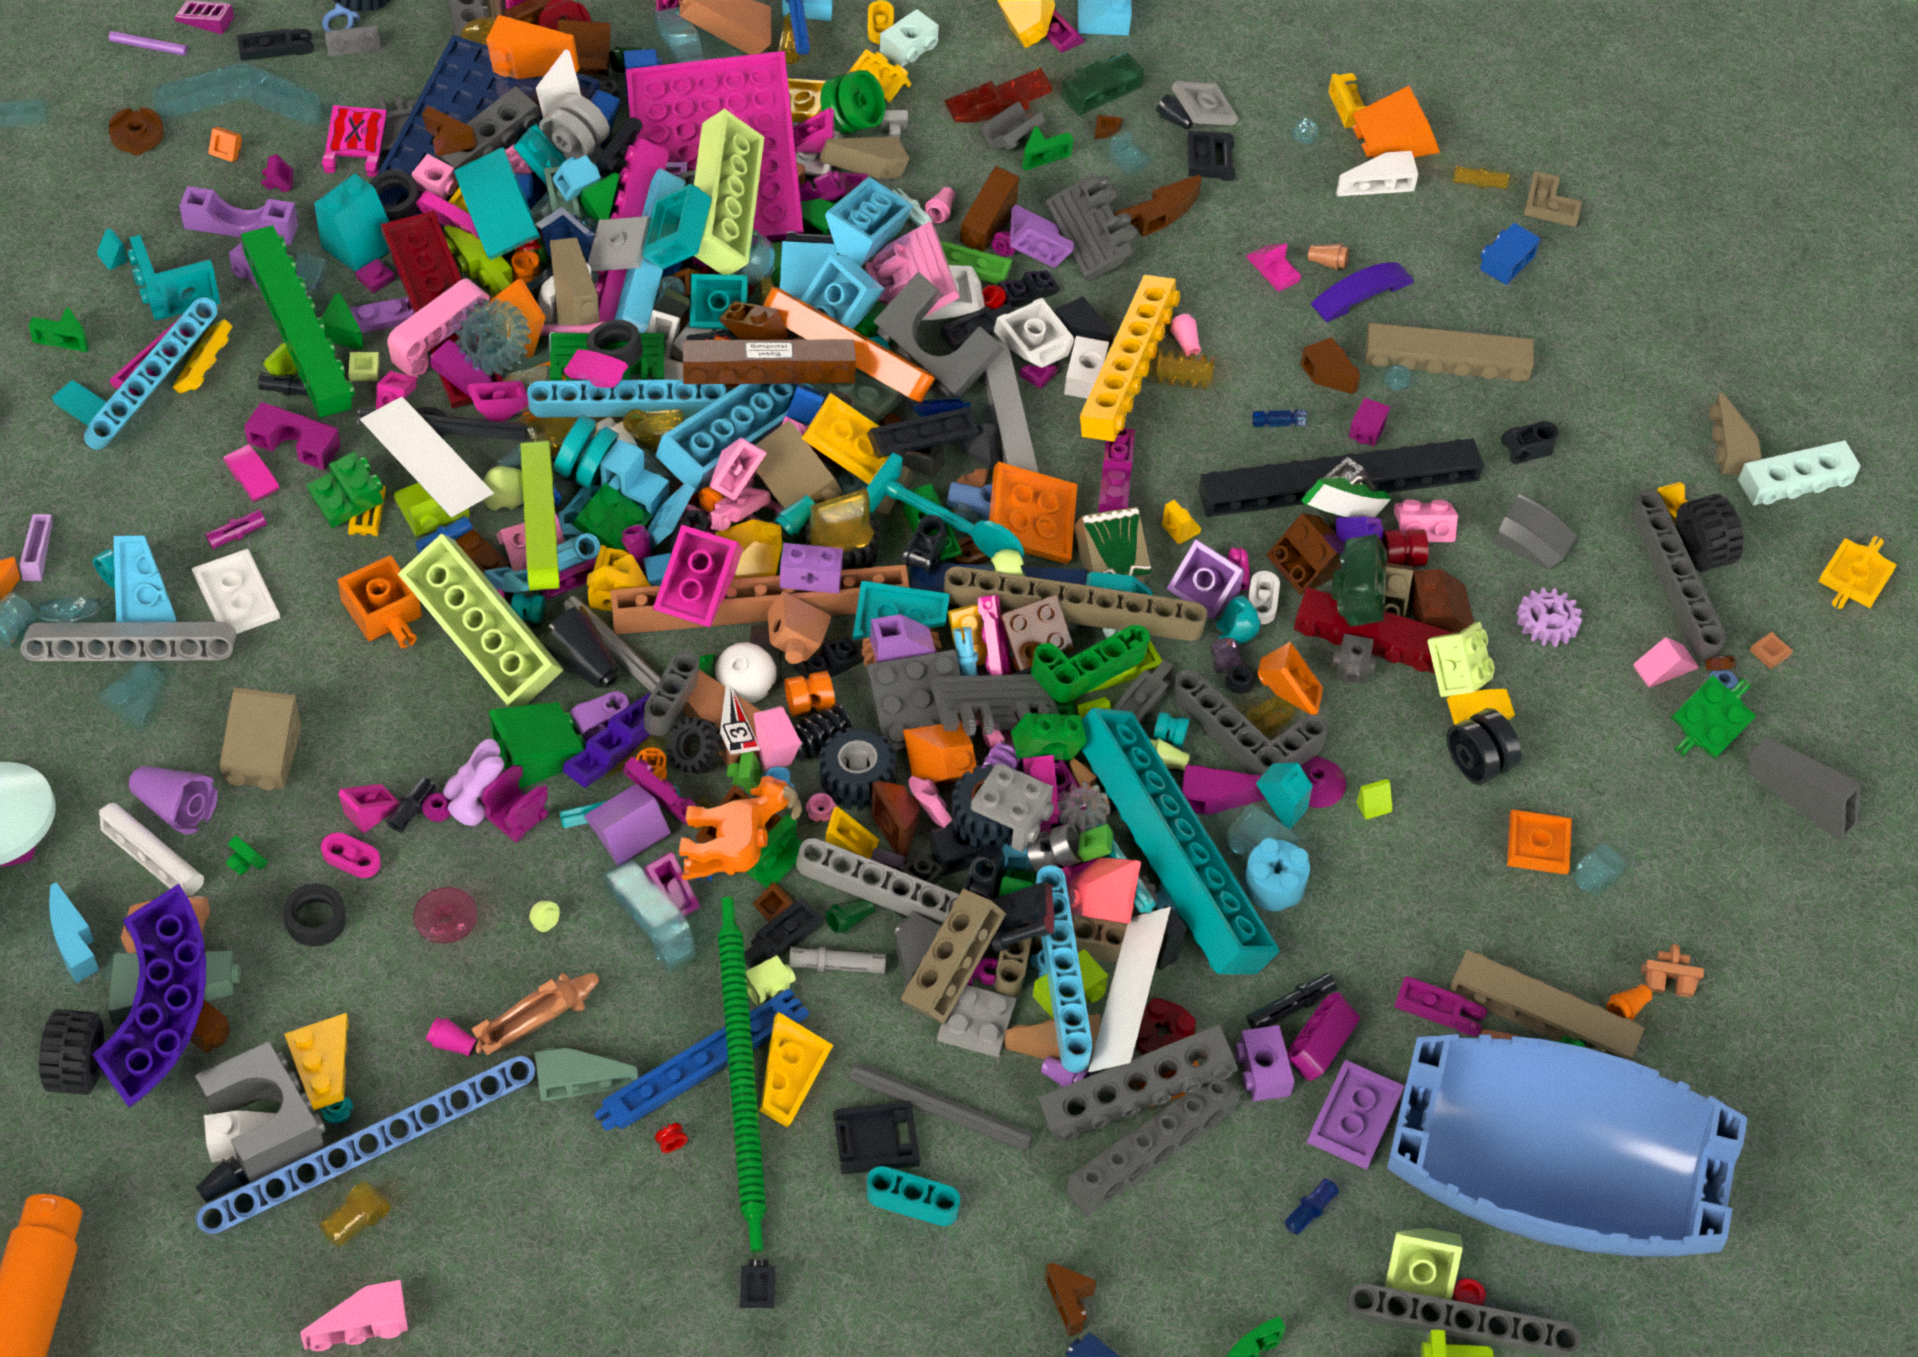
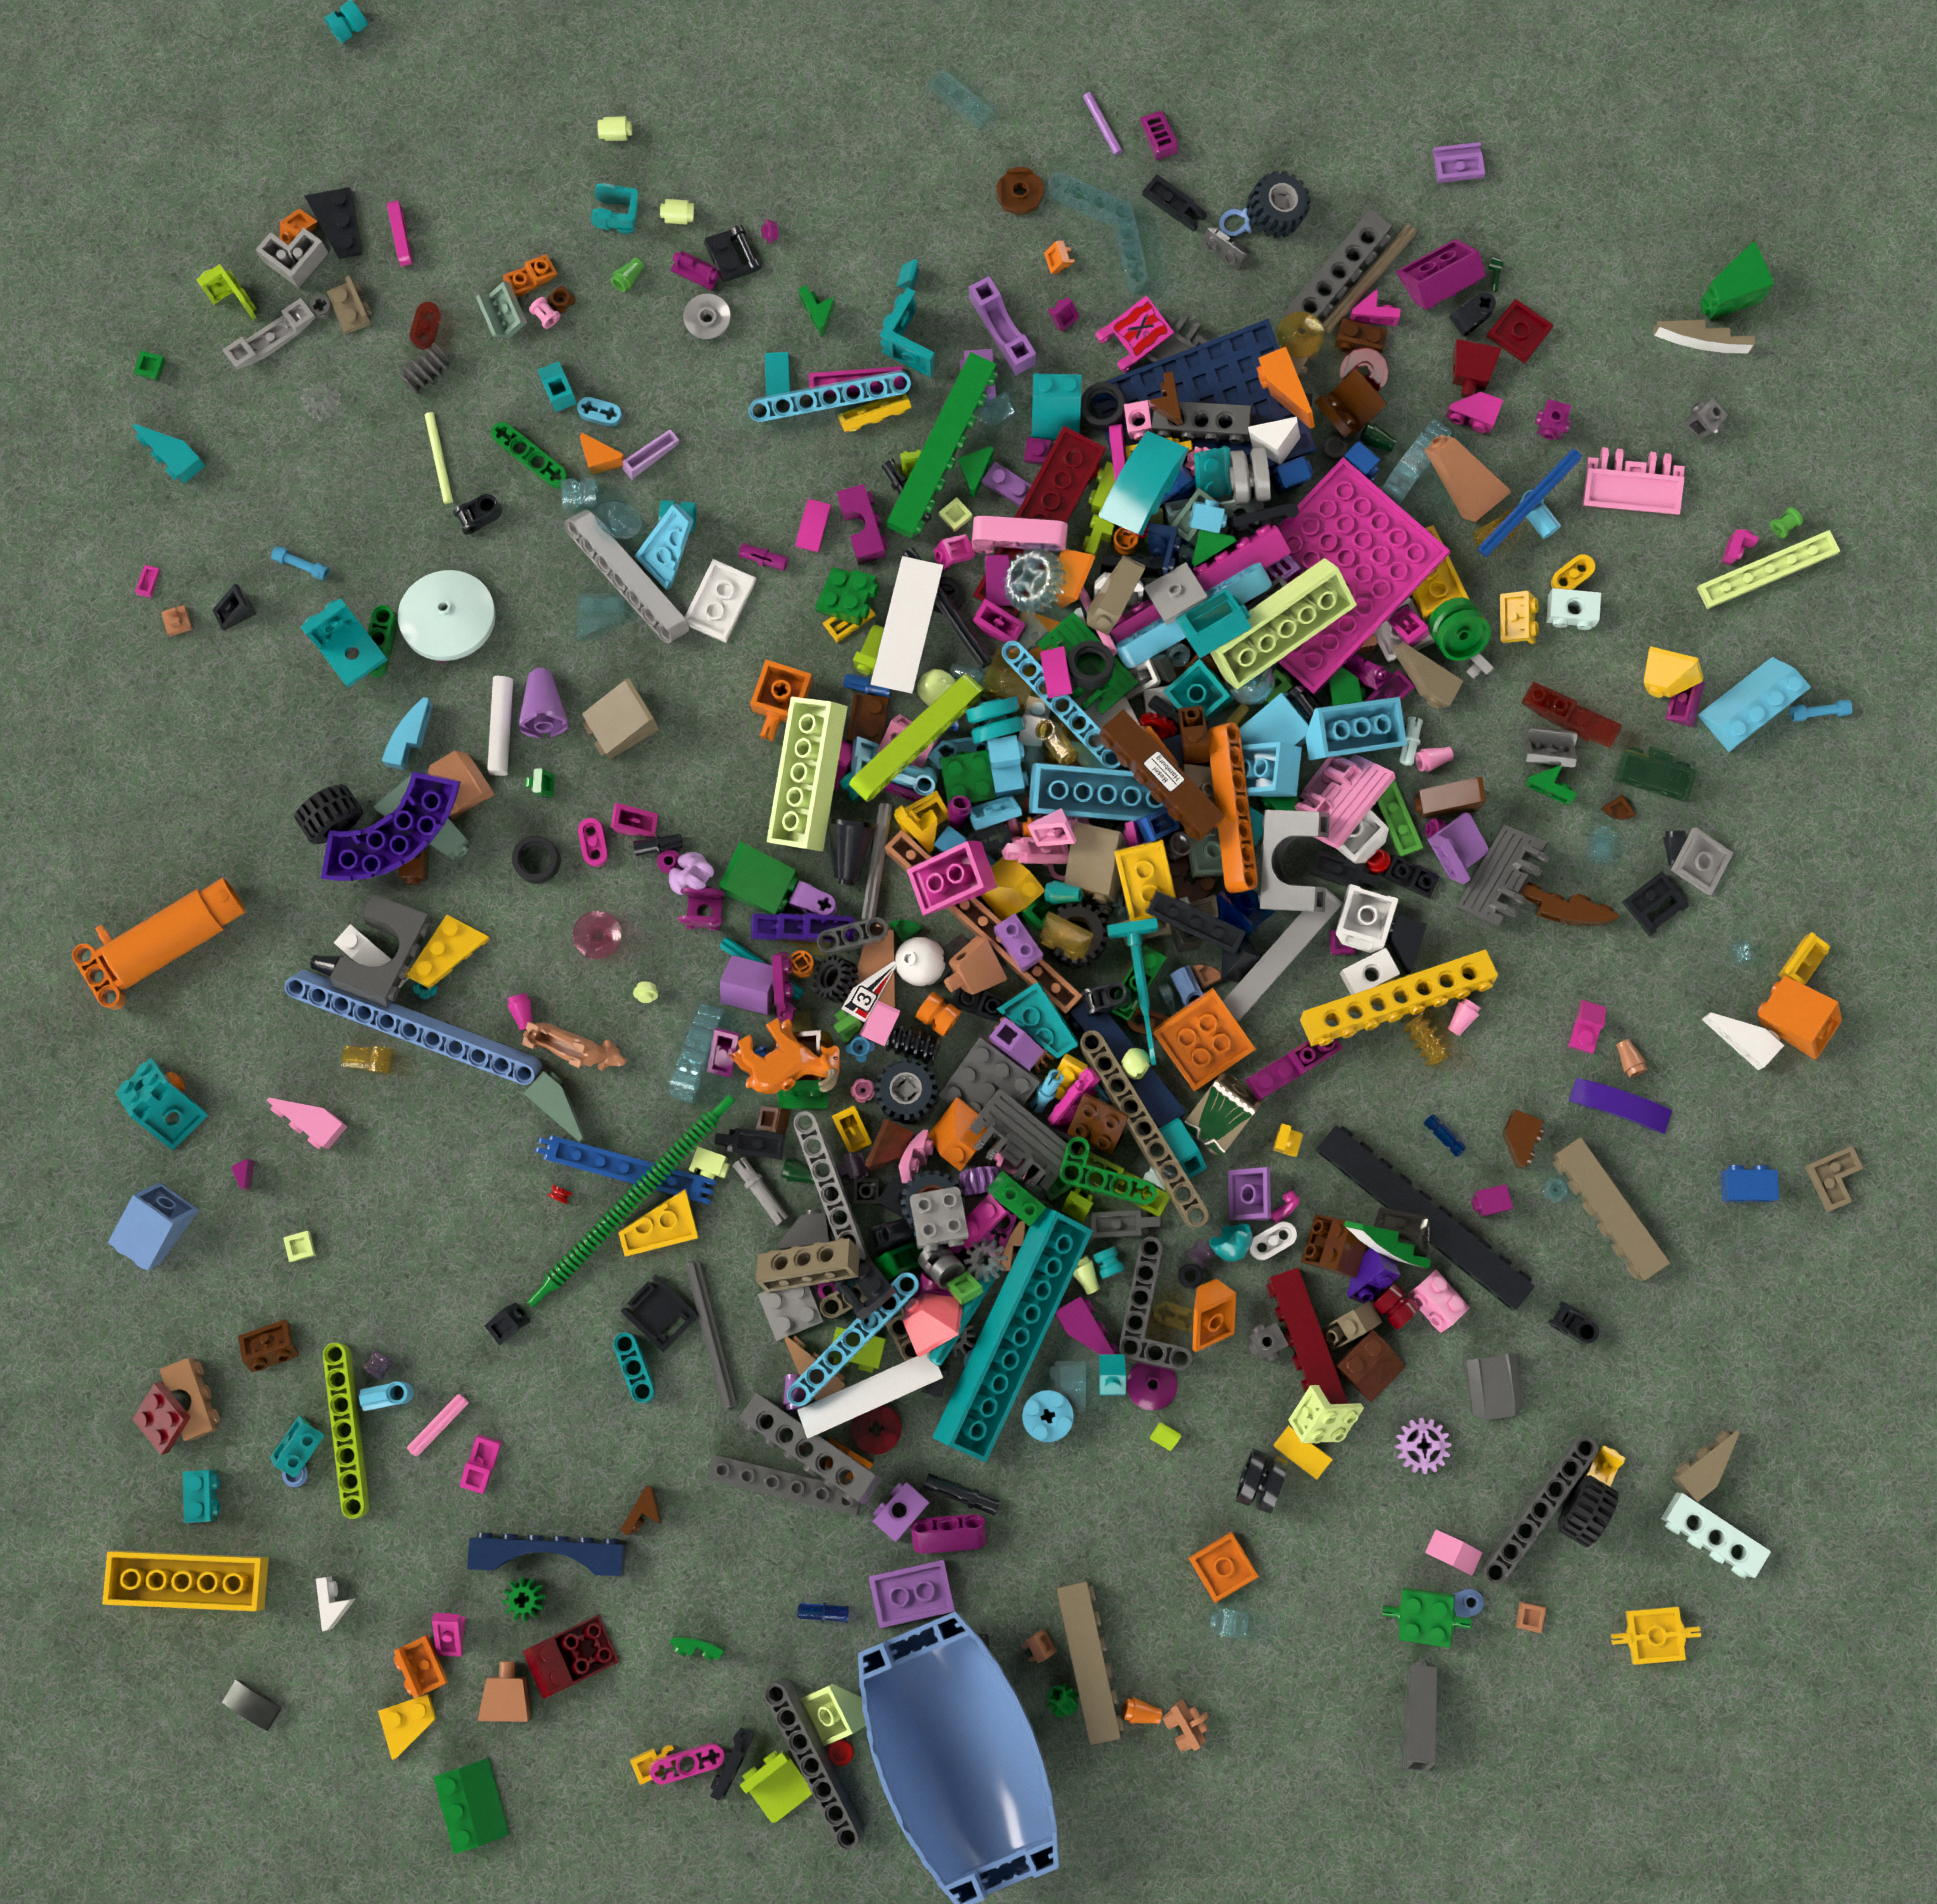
camera: 60 degrees right, 25 degrees up
(1365, 578) = (1325, 1304): clear green piece -> none
(1439, 1006) = (1036, 1587): magenta hinge -> none
(1481, 177) = (1812, 1110): clear yellow pin -> none
(1720, 663) = (1484, 1591): reddish brown tile -> none

